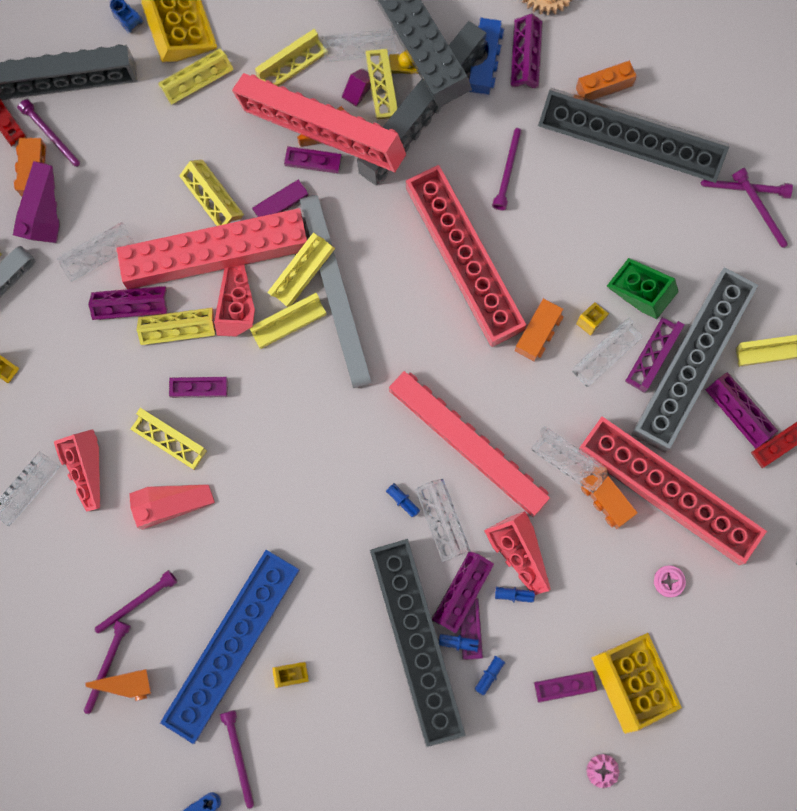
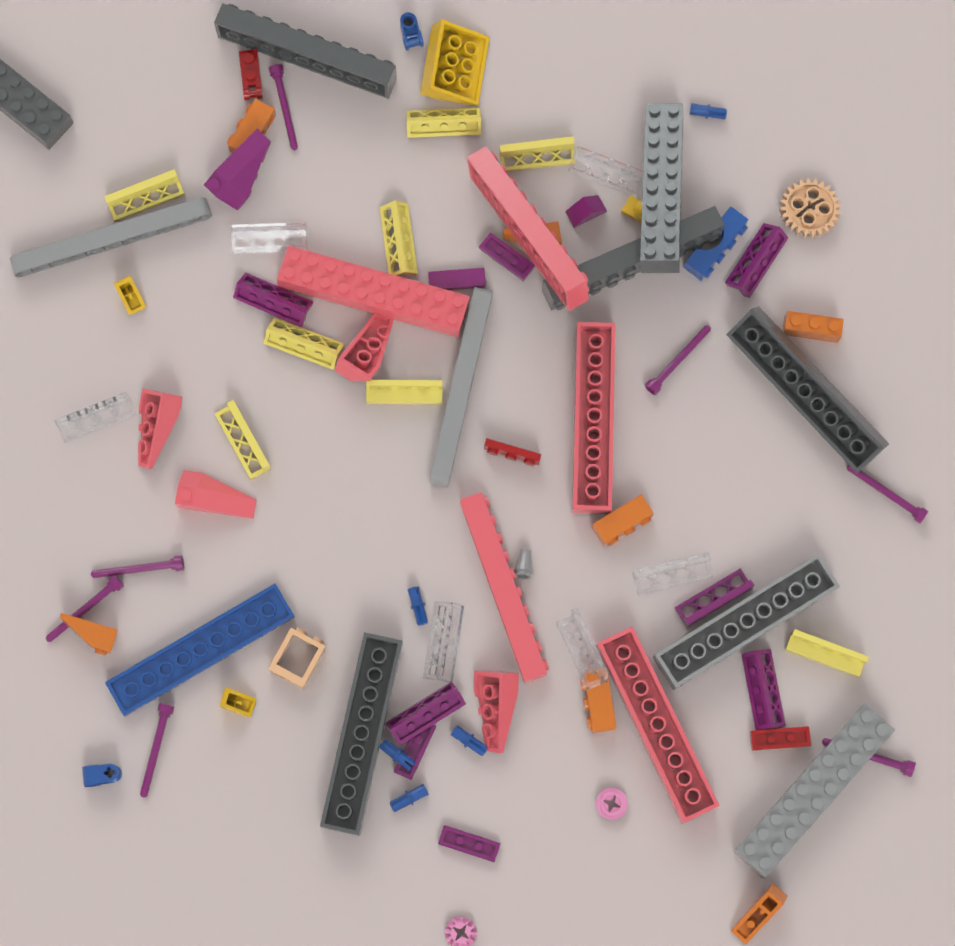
camera: 20 degrees right, 0 degrees up
(197, 387) = (293, 408): magenta plate -> none
(301, 269) = (440, 353): light yellow fence -> none
(321, 625) = (289, 676): none -> light nougat window
(386, 83) = (613, 220): light yellow fence -> none
(411, 322) = (511, 452): none -> red plate
(476, 415) = (524, 565): none -> light grey cone
(592, 318) = (677, 535): yellow slope -> none
(636, 683) = (532, 874): yellow slope -> none
(644, 287) = (738, 533): green slope -> none
(742, 177) = (885, 481): magenta piece -> none

